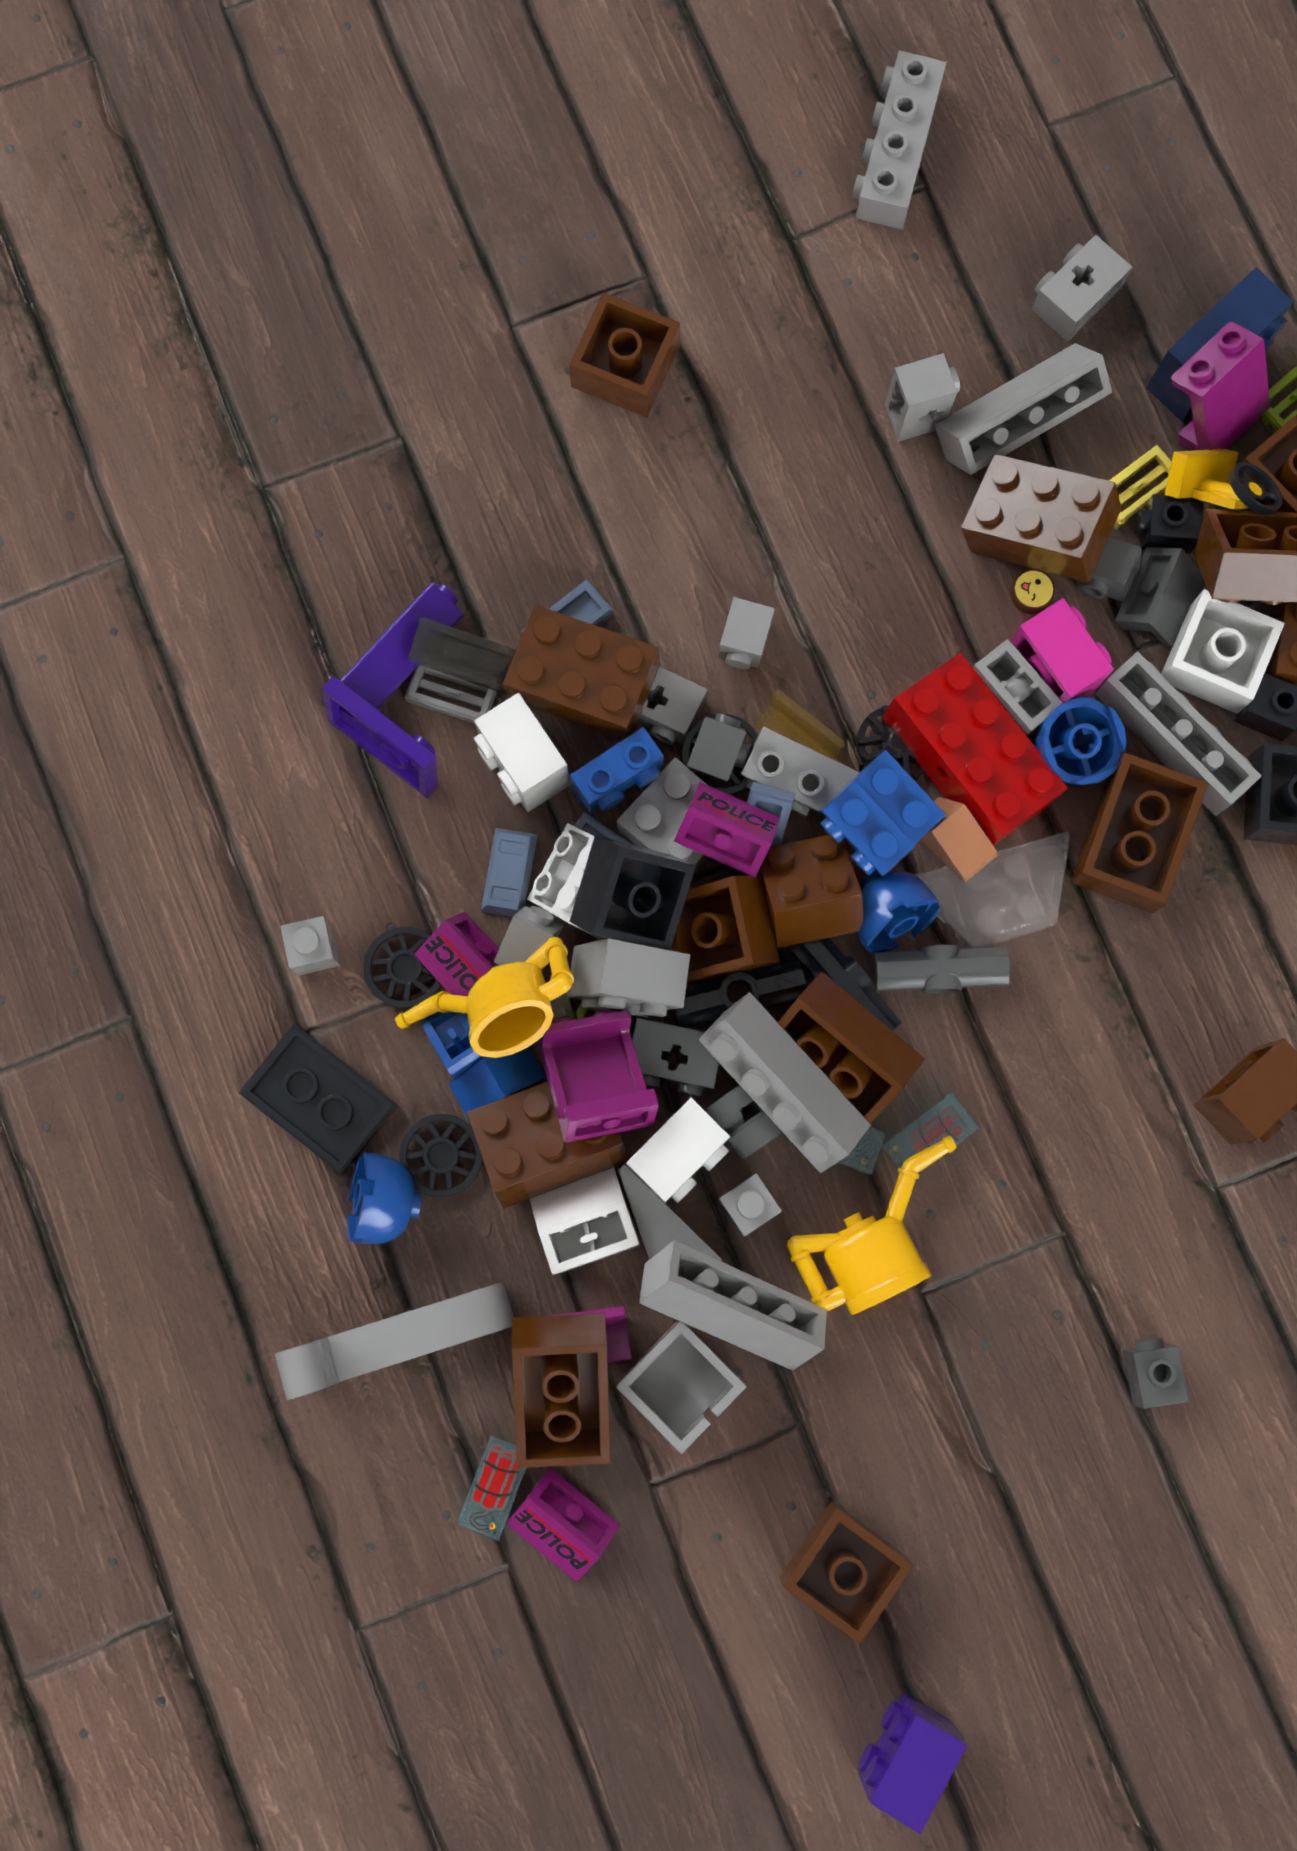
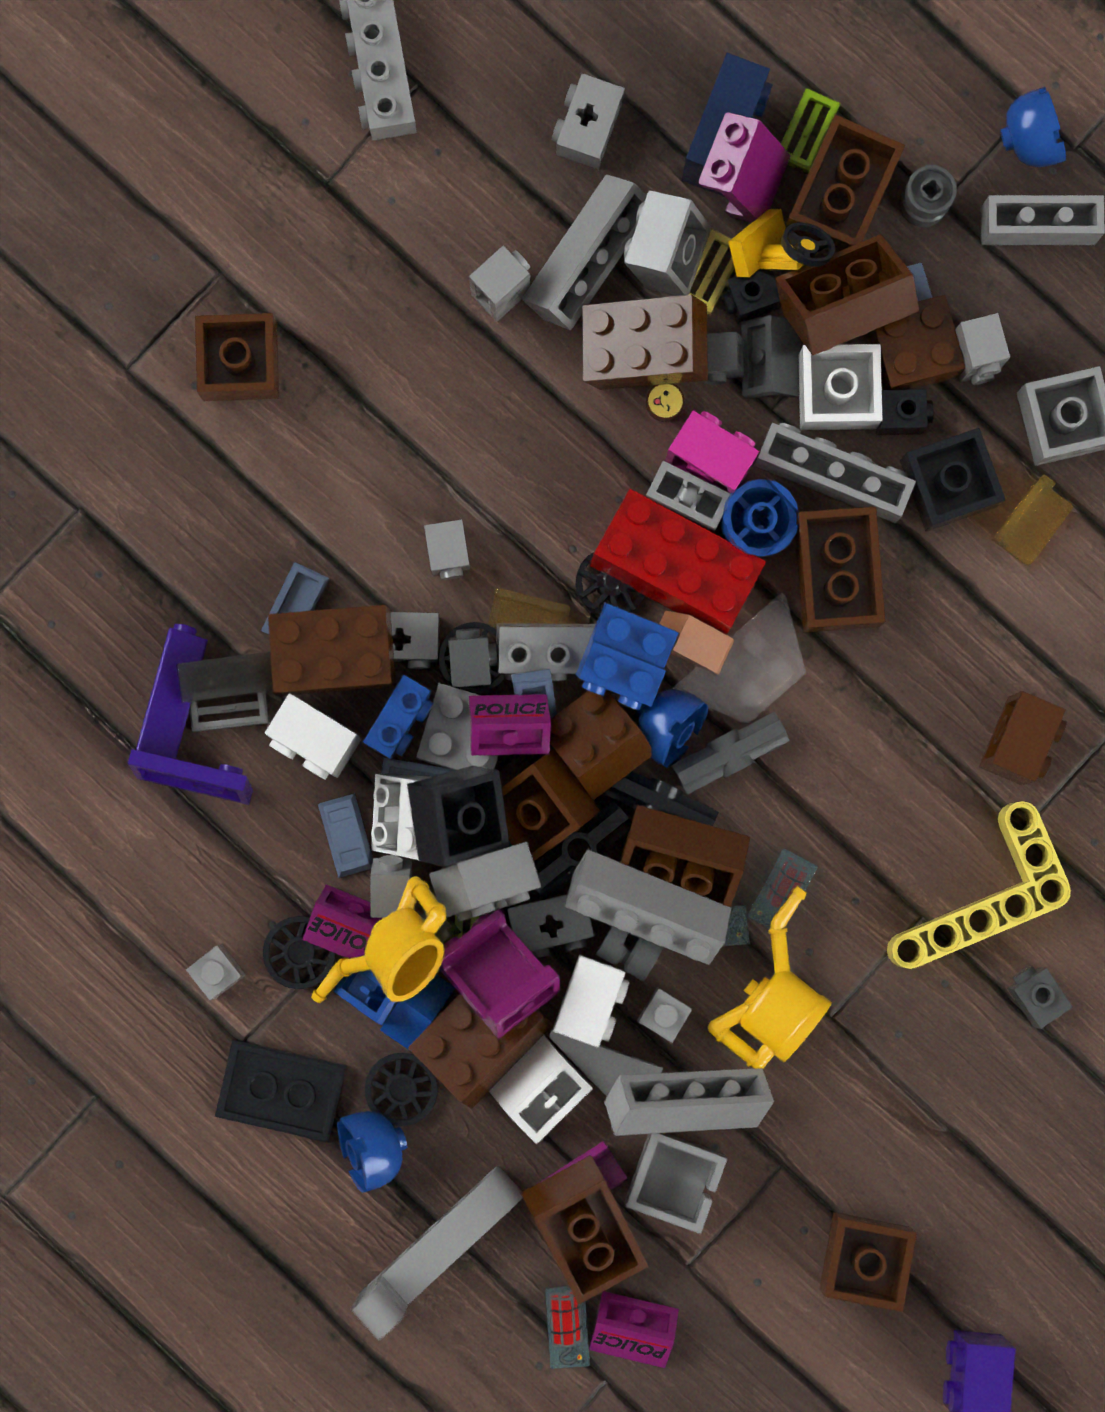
camera: 30 degrees left, 5 degrees up
(1110, 427) = (667, 243): none -> light grey brick
(1148, 1257) = (994, 905): none -> light yellow beam

